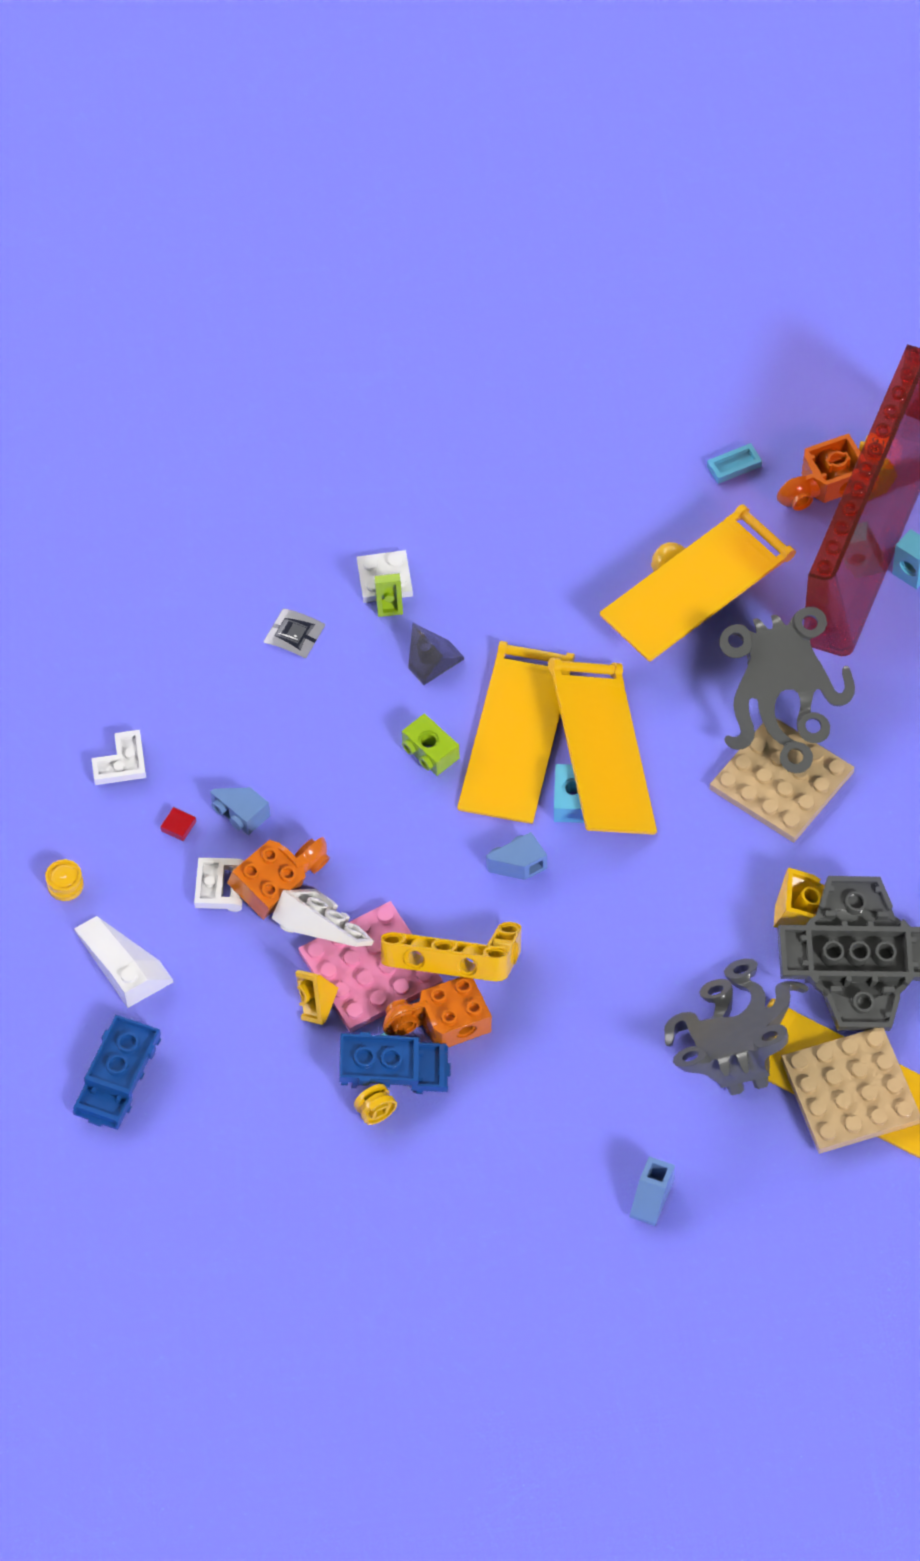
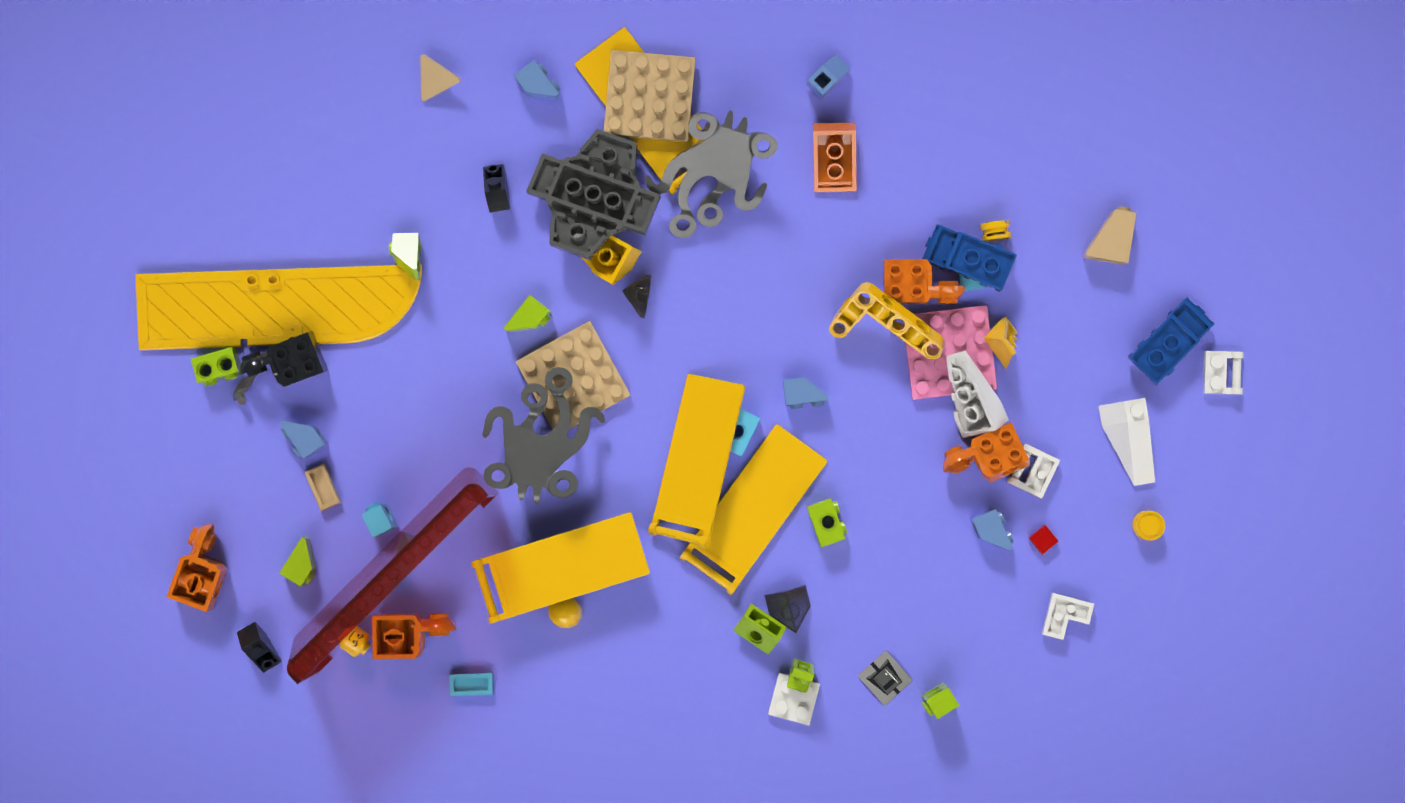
camera: 155 degrees left, 30 degrees up
(48, 1064) = (1216, 372): none -> white plate
(226, 622) = (939, 701): none -> lime brick
(232, 1153) = (1114, 238): none -> tan slope
(453, 617) = (759, 629): none -> lime brick
(603, 1112) = (834, 157): none -> orange slope
(754, 877) = (638, 295): none -> clear smoke slope
(863, 814) = (529, 316): none -> lime slope

